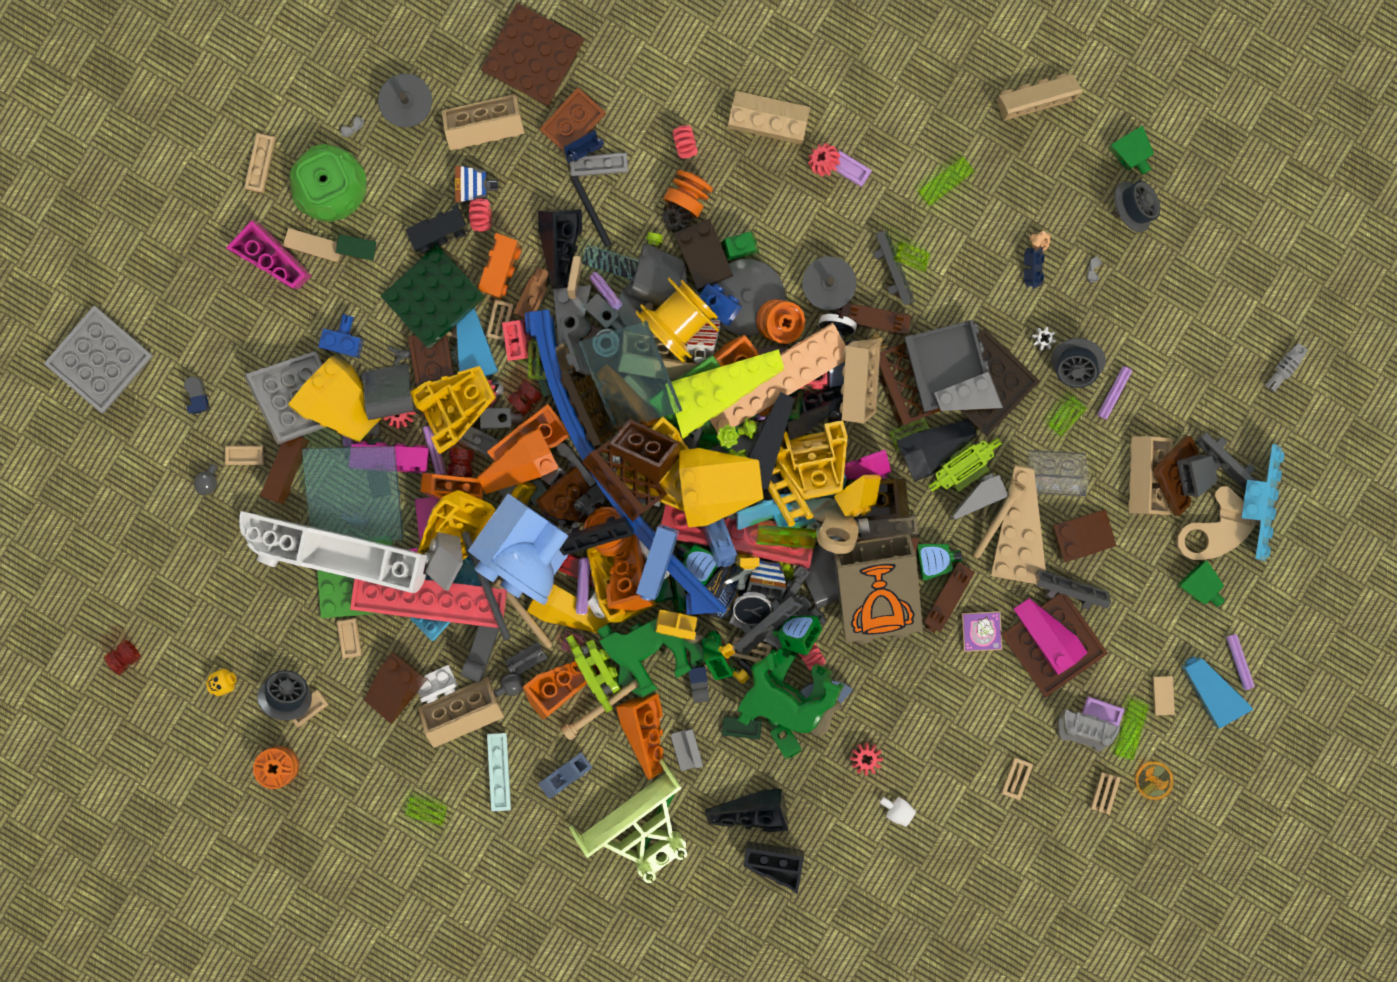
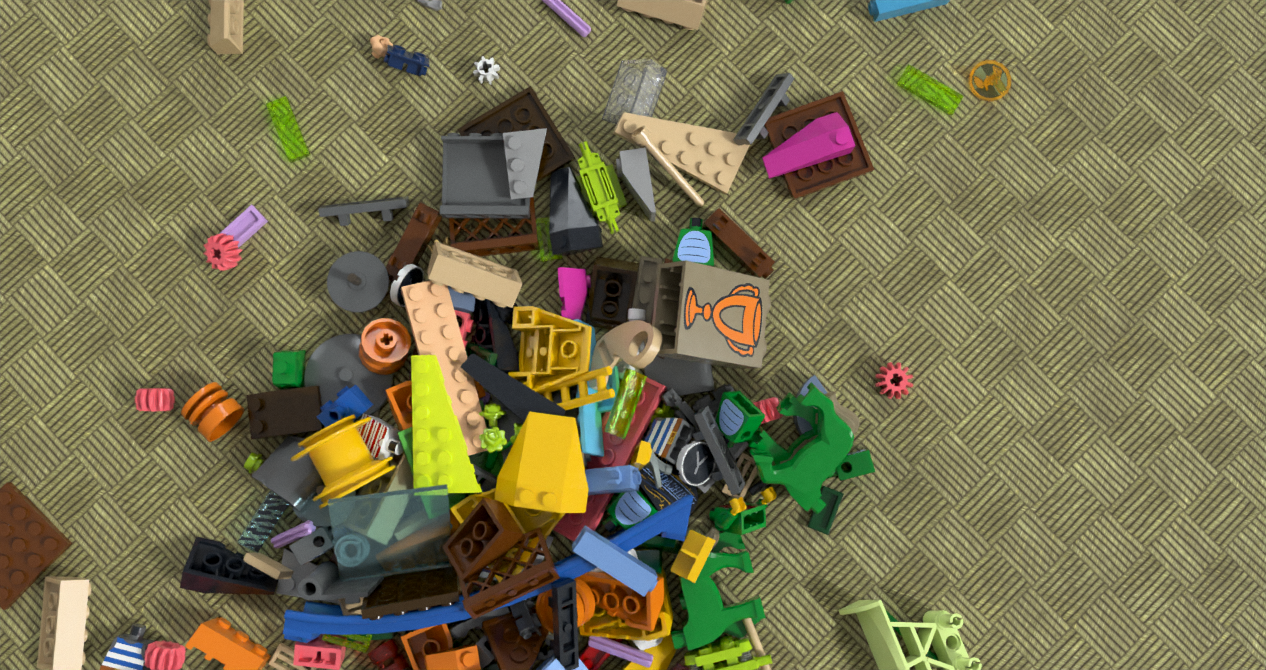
camera: 75 degrees left, 5 degrees down
(532, 293) = (270, 615): medium nougat hinge -> none
(572, 119) = (95, 520): dark orange plate -> none
(581, 146) = (124, 517): dark blue hinge -> none
(591, 211) = (200, 526): black bar -> none
(600, 164) = (153, 503): light grey tile -> none
(641, 725) = (800, 624): orange wedge -> none
(676, 217) = (234, 431): clear smoke gear -> none
(686, 749) = (834, 578): light grey panel -> none
(699, 684) = (765, 545): leg -> none
(761, 809) = (922, 512): black wedge -> none
(768, 117) = (160, 301): tan slope -> none
(775, 863) = (987, 513): black wedge -> none
(859, 496) = (601, 310): yellow slope -> none
(899, 811) = (960, 359): white piece -> none
(900, 252) = (350, 194): clear neon green tile -> none
(981, 631) = (784, 219): tile -> none
(1027, 772) = (964, 240): tan tile -> none
(1072, 421) = (567, 54): clear neon green tile -> none
(1078, 362) = (520, 38): dark grey piece -> none
(1083, 536) = (709, 86): reddish brown slope -> none
(1086, 730) = (920, 134): light grey piece -> none
(1103, 711) = (903, 114): lavender tile -> none
(1112, 795) = (995, 127): tan tile -> none
(1163, 695) = (901, 47): tan tile -> none

